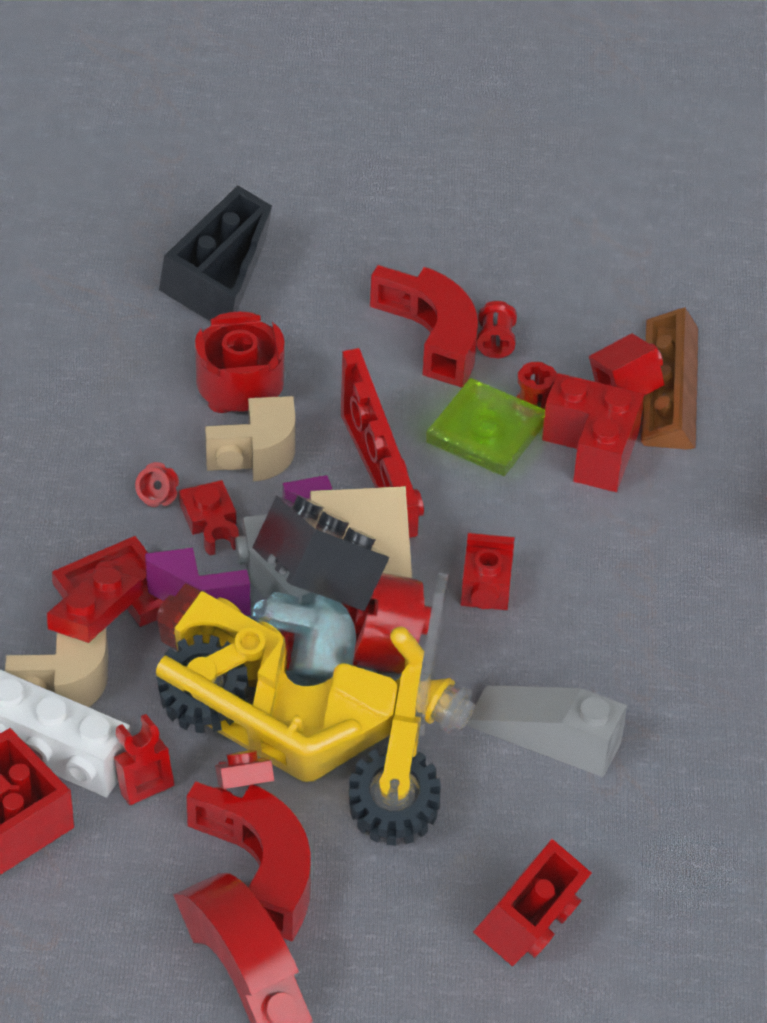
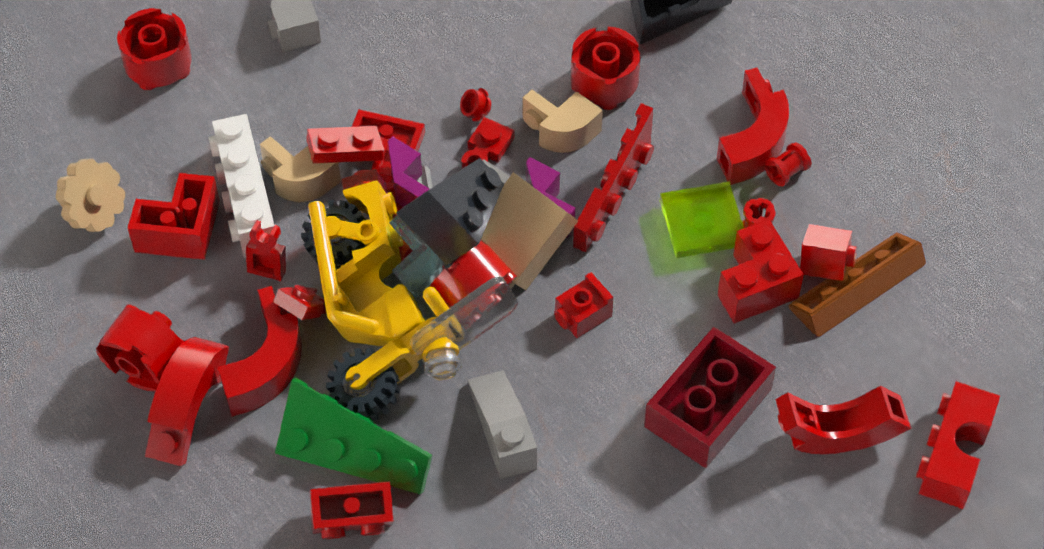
camera: 50 degrees right, 10 degrees up
(144, 942) = (139, 346): none -> red brick
(436, 858) = (335, 438): none -> green wing
(696, 553) = (709, 397): none -> dark red brick

